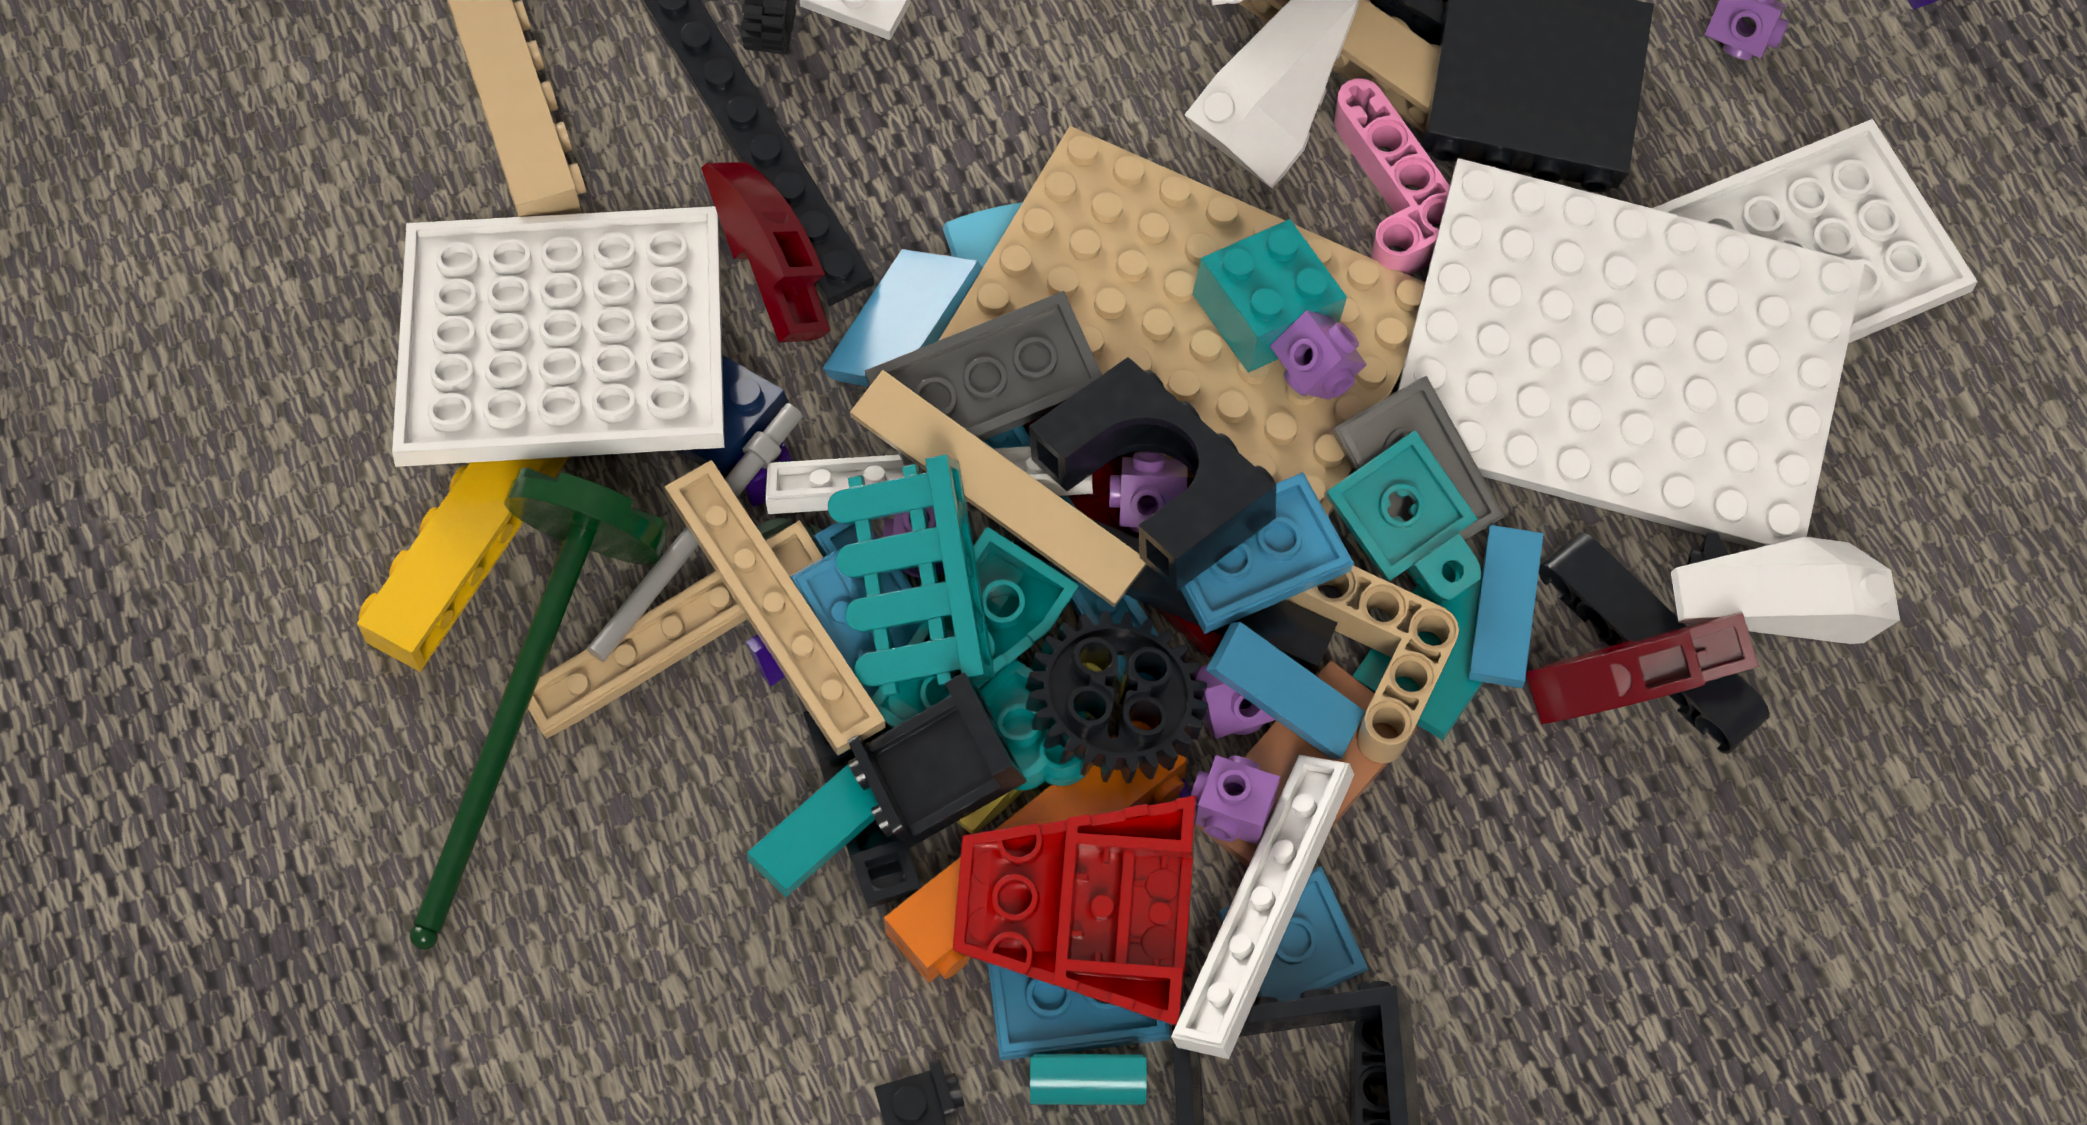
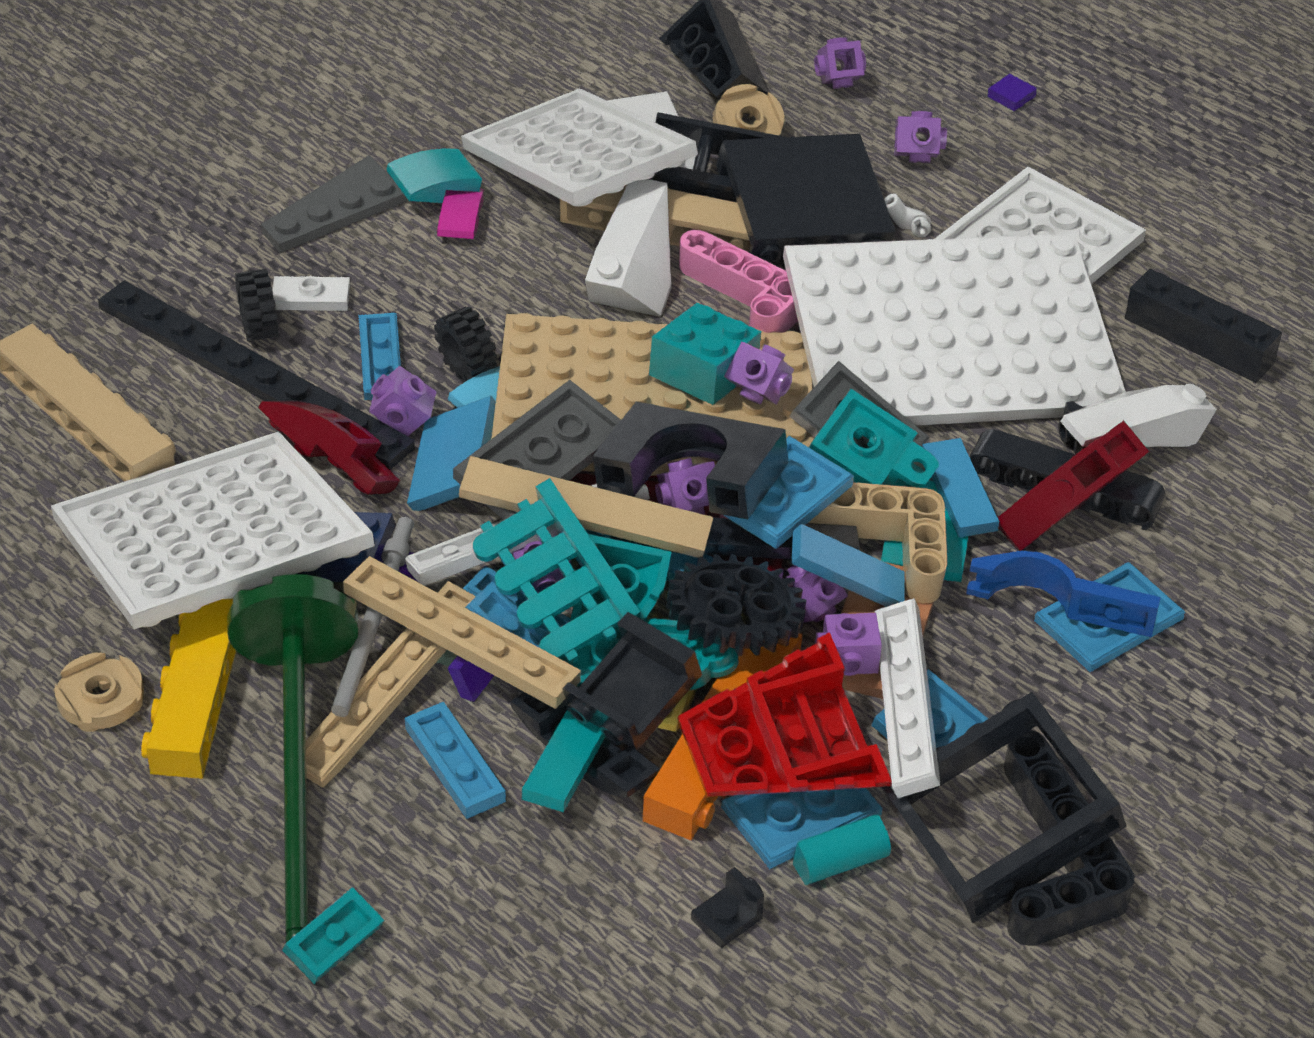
camera: 25 degrees left, 20 degrees down
(361, 536) = (105, 710): none -> tan plate
(459, 953) = (333, 935): none -> teal plate
(705, 766) = (455, 760): none -> dark azure plate
(877, 218) = (402, 400): none -> medium lavender brick
(895, 128) = (378, 348): none -> dark azure tile
(993, 160) = (465, 343): none -> black tyre
(1563, 841) = (1081, 598): none -> blue piece
(1601, 867) = (1096, 644): none -> dark azure tile
(1668, 144) = (908, 217): none -> white arm
(1955, 446) = (1203, 325): none -> black wedge

